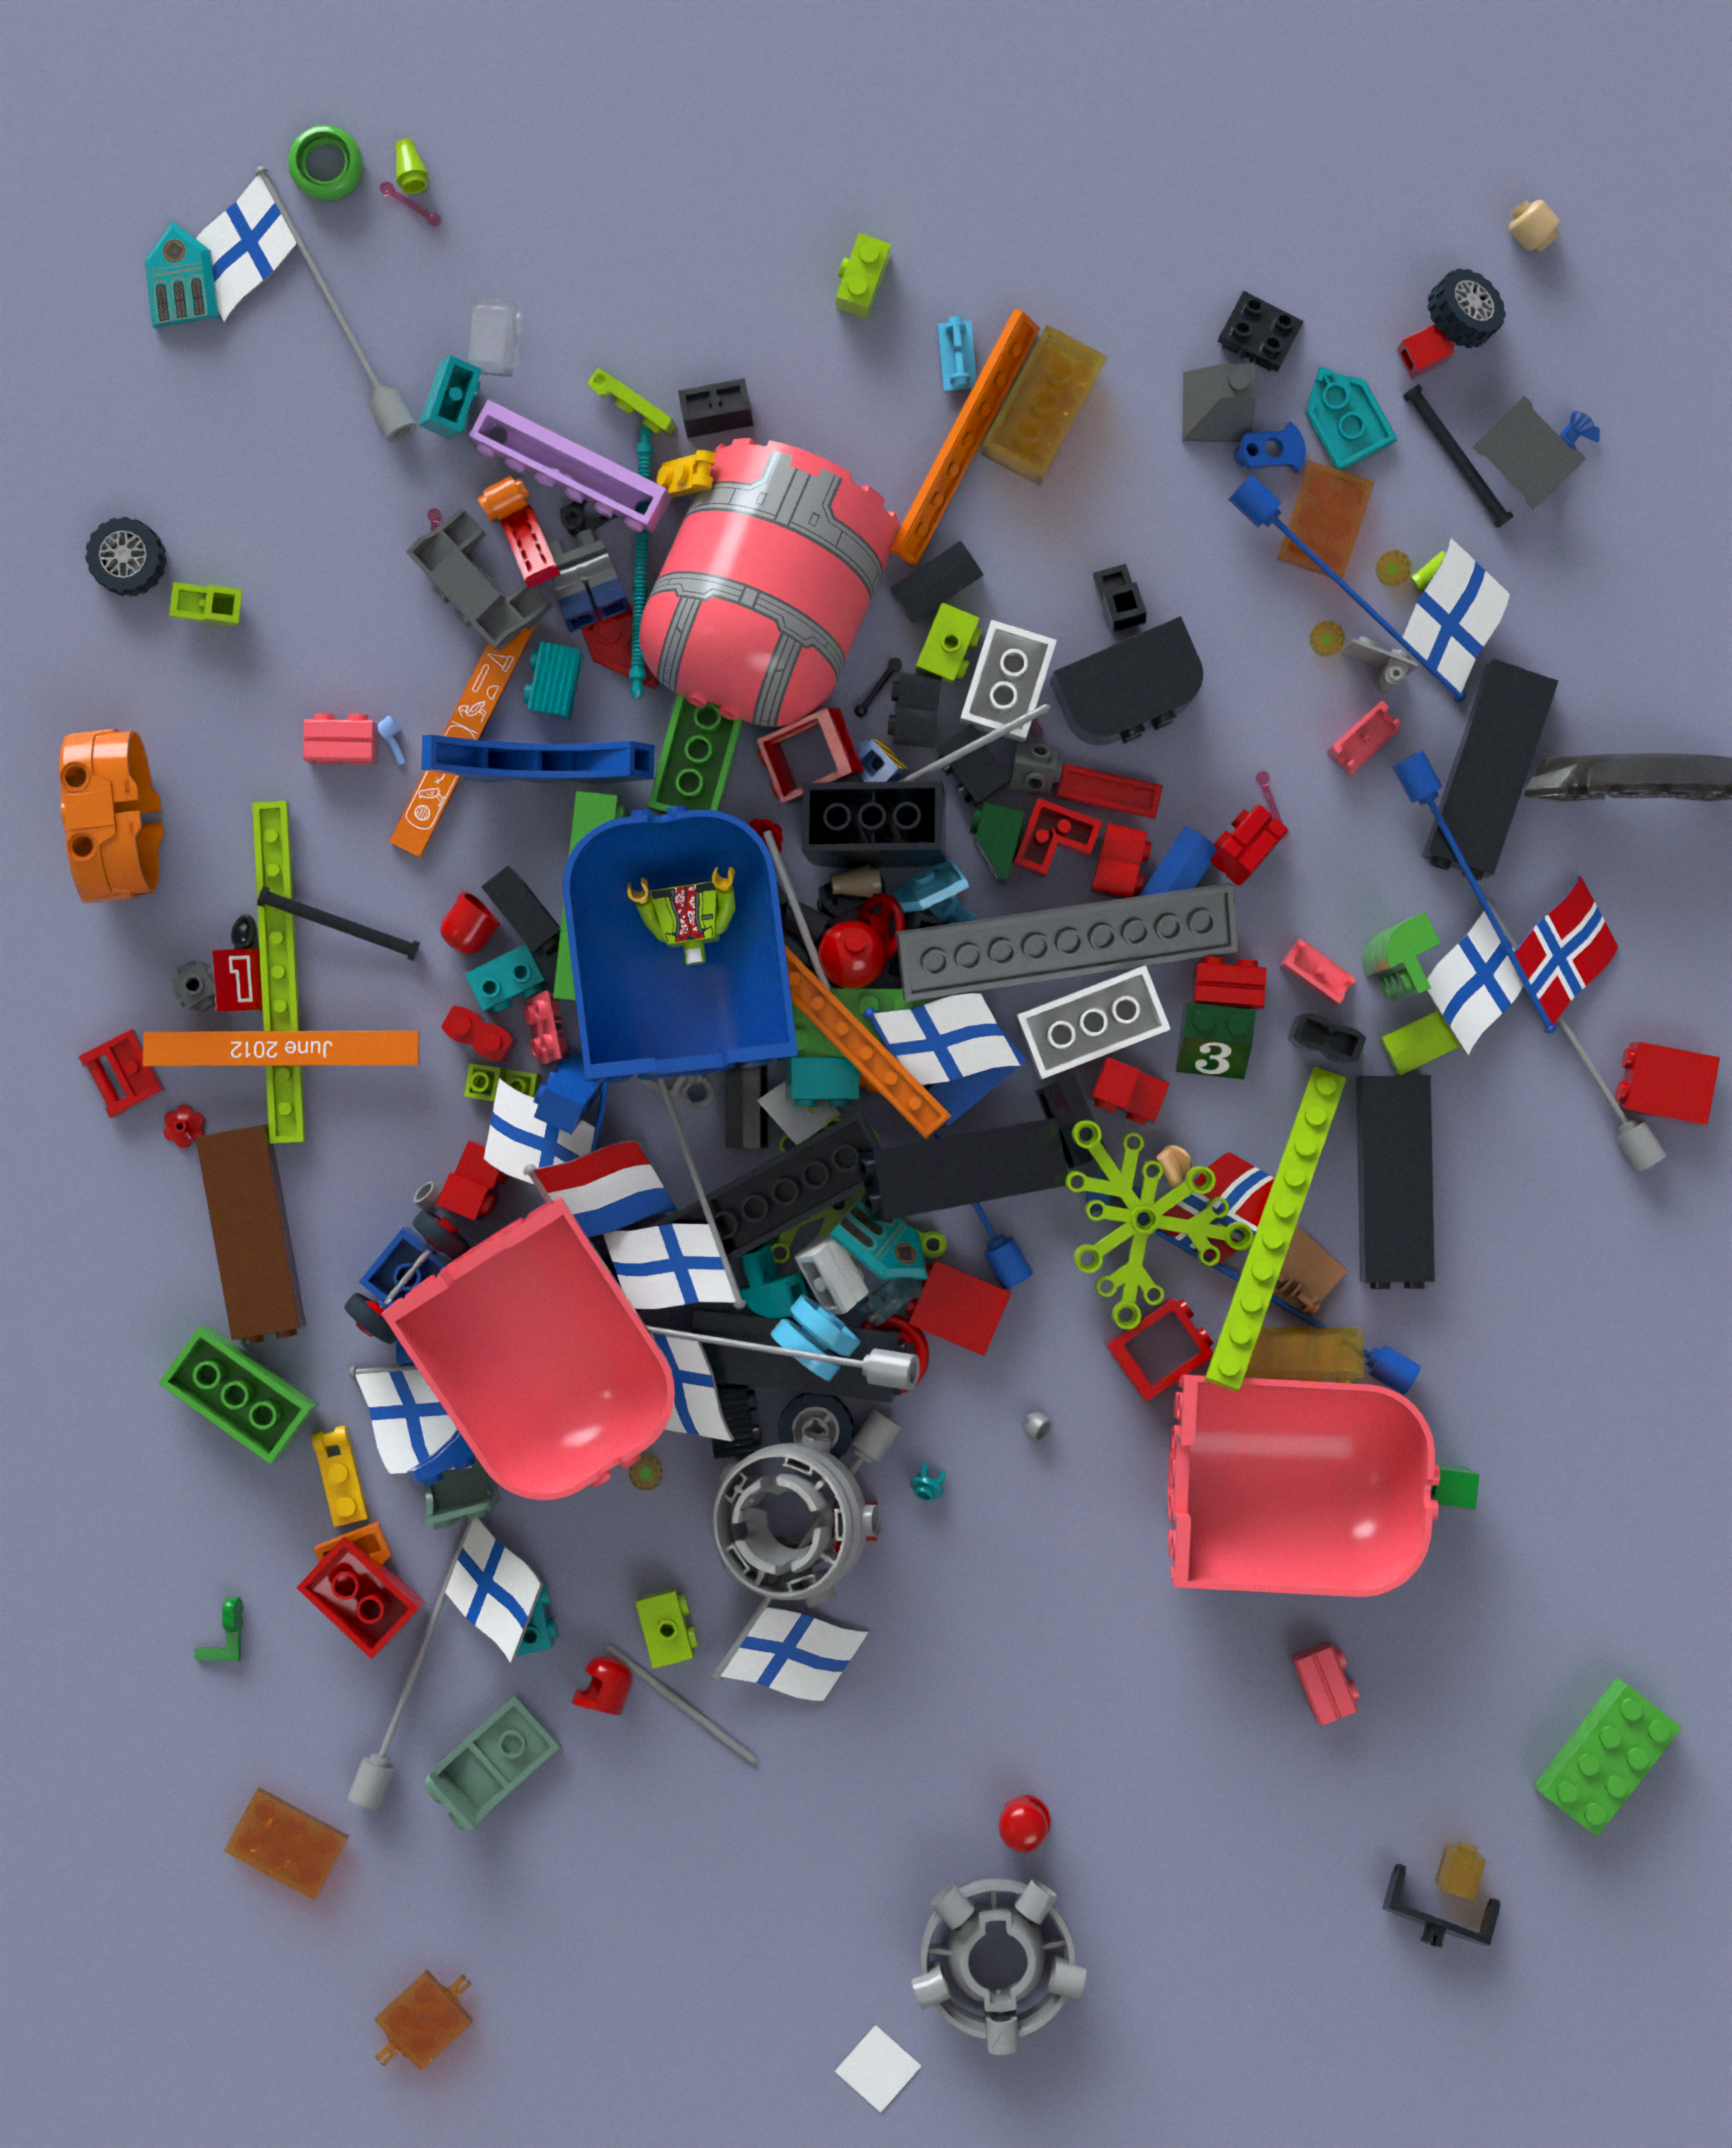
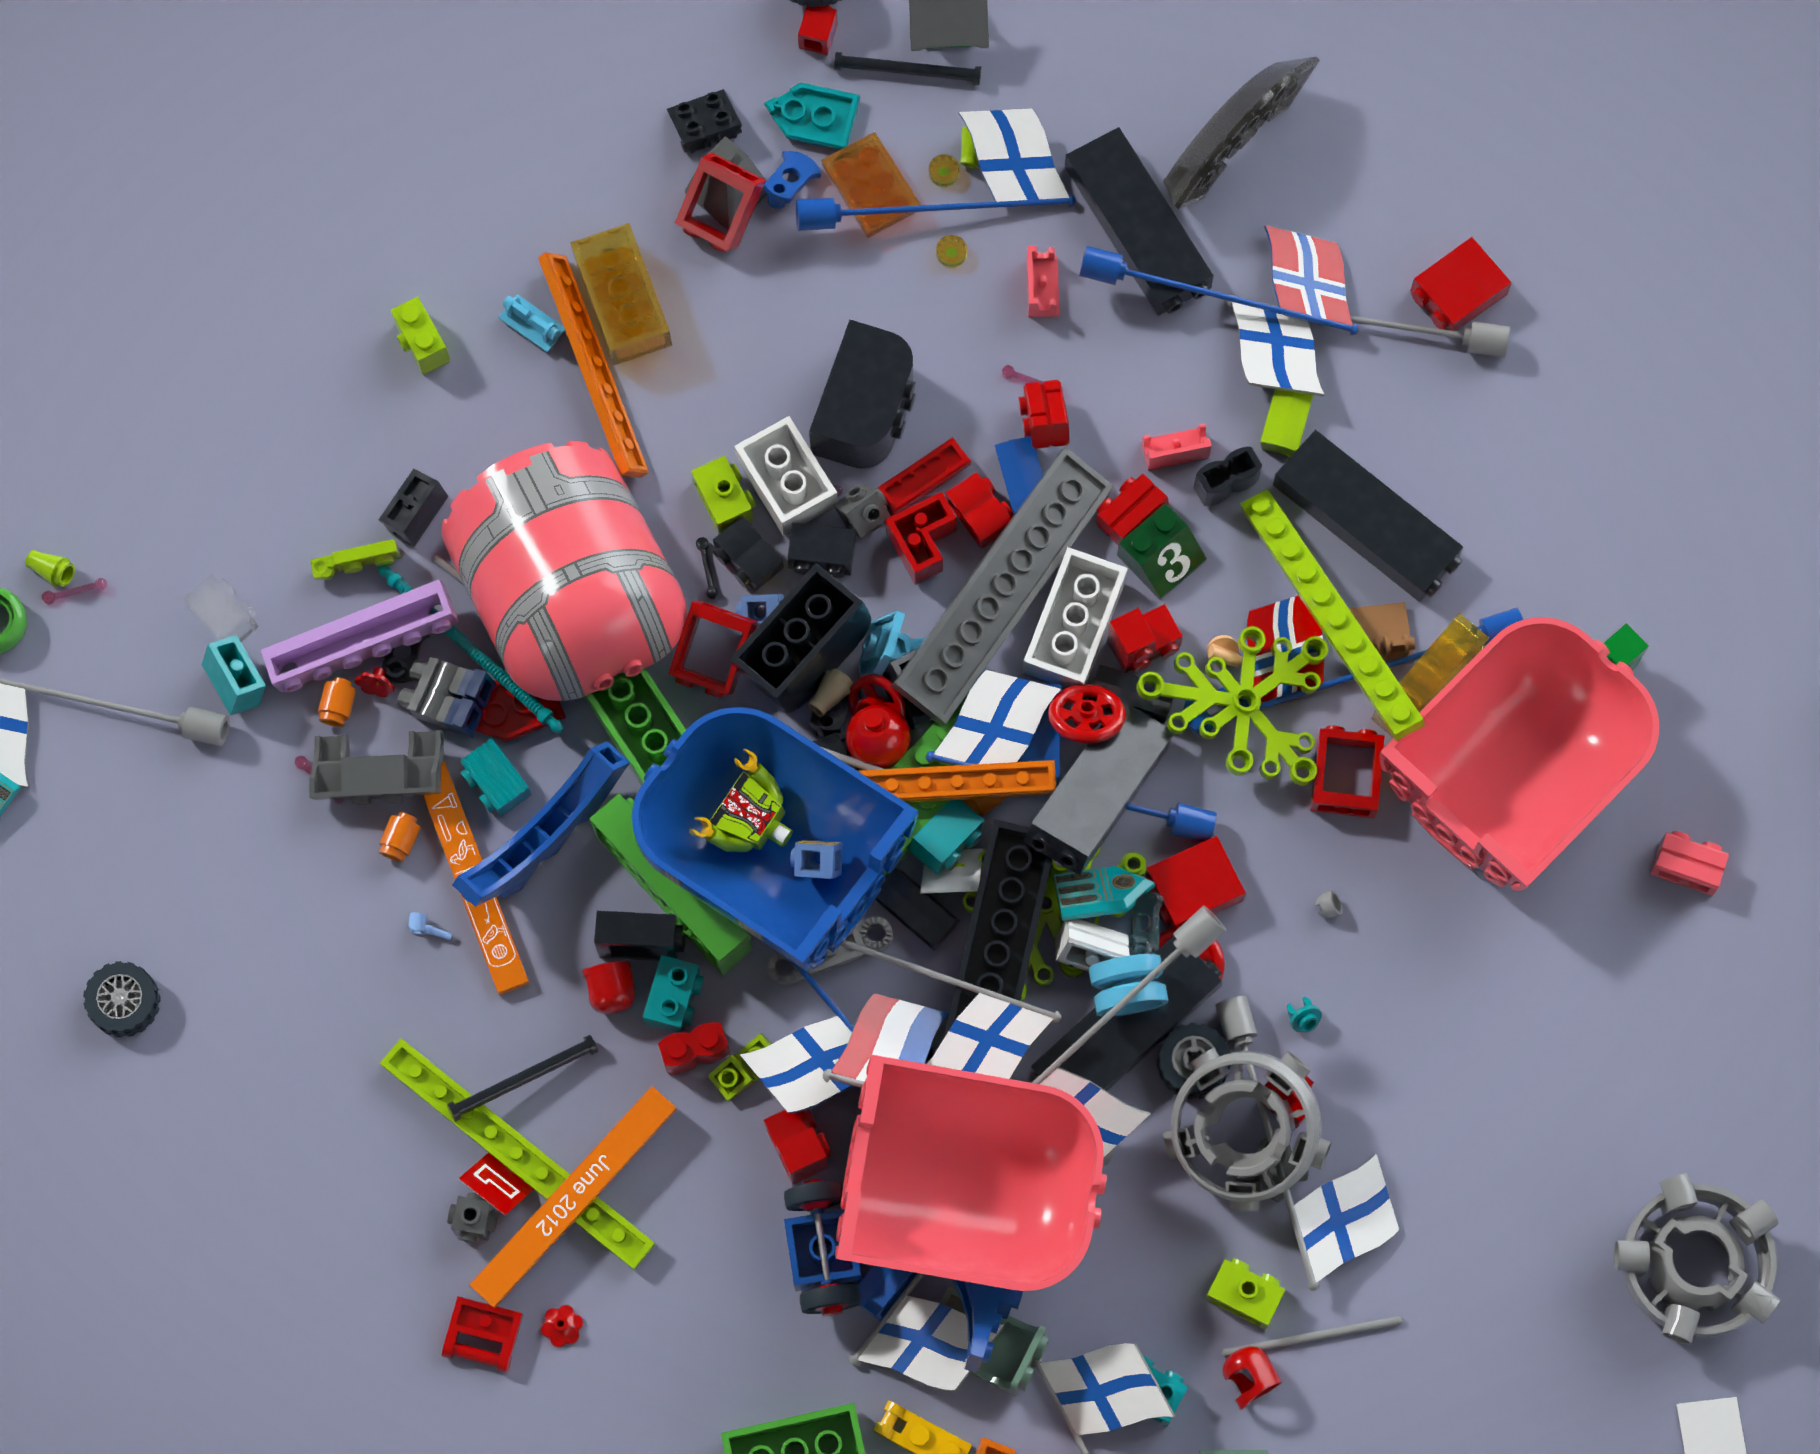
camera: 50 degrees left, 15 degrees down
(103, 794) = (295, 1163): orange piece -> none
(206, 604) = (213, 969): lime brick -> none
(244, 932) = (464, 1153): black piece -> none
(251, 1234) = (686, 1341): reddish brown brick -> none
(340, 741) = (395, 962): coral brick -> none
(427, 1196) = (775, 1189): light grey hinge -> none
(441, 650) = (399, 837): none -> orange brick
(530, 547) = (388, 709): red plate -> none
(540, 1014) = (733, 997): coral hinge -> none
(547, 513) = (375, 683): none -> red plant
(566, 1095) = (796, 1010): blue brick -> none
(646, 1473) = (1118, 1211): clear yellow tile -> none
(687, 474) = (443, 557): yellow plate -> none
(688, 1003) = (830, 859): none -> medium blue brick
(736, 1408) = (1155, 1124): black brick -> none
(767, 1292) = (1072, 1000): teal brick -> none
(936, 582) = (672, 466): black piece -> none
(978, 743) = (812, 521): light grey axle -> none
(995, 1117) = (1087, 713): none -> red plate
(997, 837) = (888, 573): dark green slope -> none
(1024, 1824) = (1614, 1161): red helmet -> none
(1119, 598) = (799, 356): black brick -> none
(1223, 409) = (734, 176): none -> red window
(1393, 665) = (1007, 222): light grey hinge -> none
(1394, 957) = (1216, 377): bright green brick -> none

